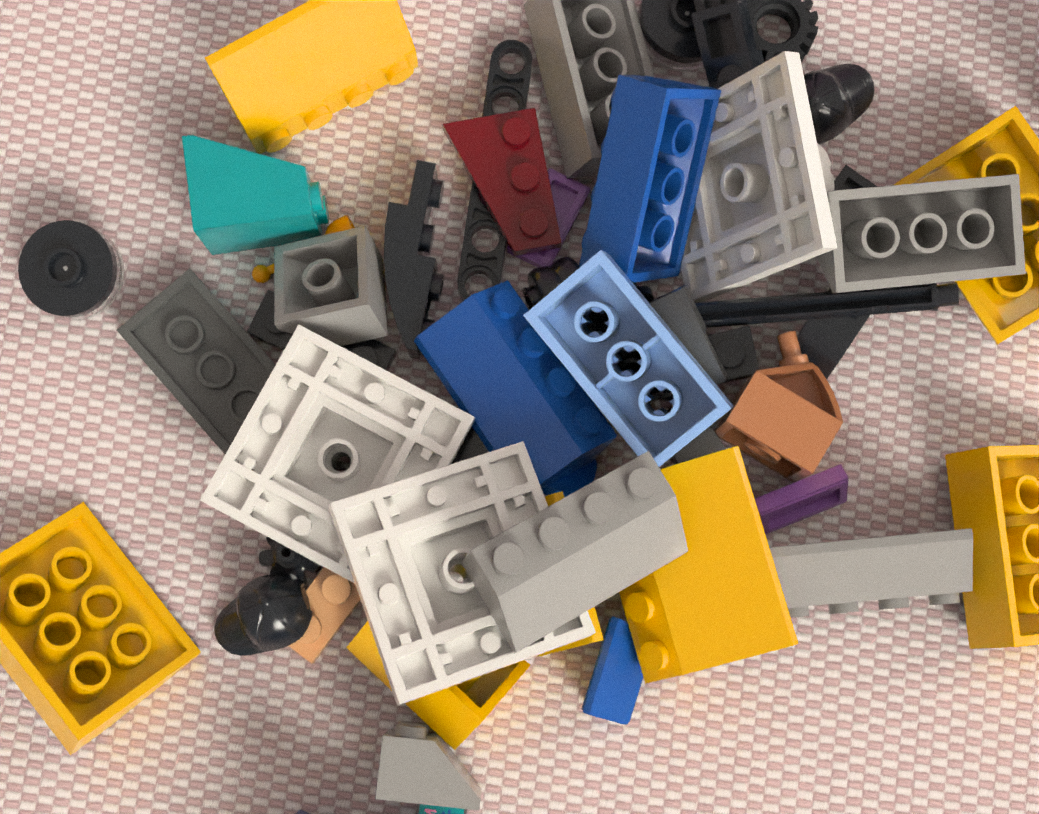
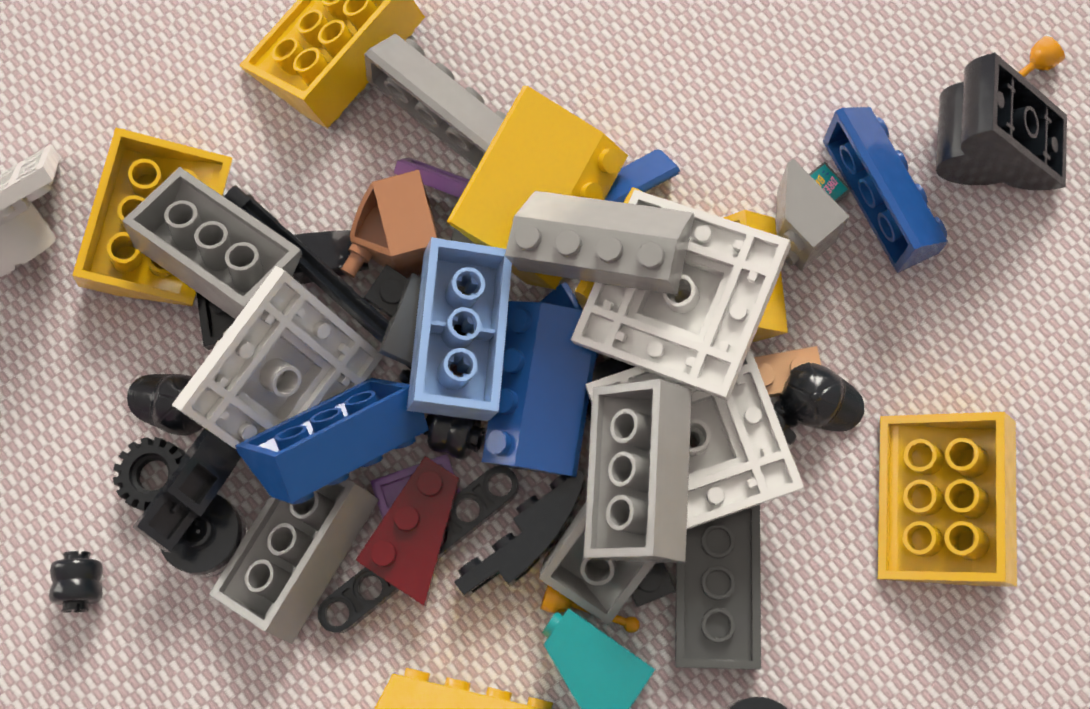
camera: 125 degrees left, 5 degrees down
(350, 372) = (638, 472): none -> light grey slope

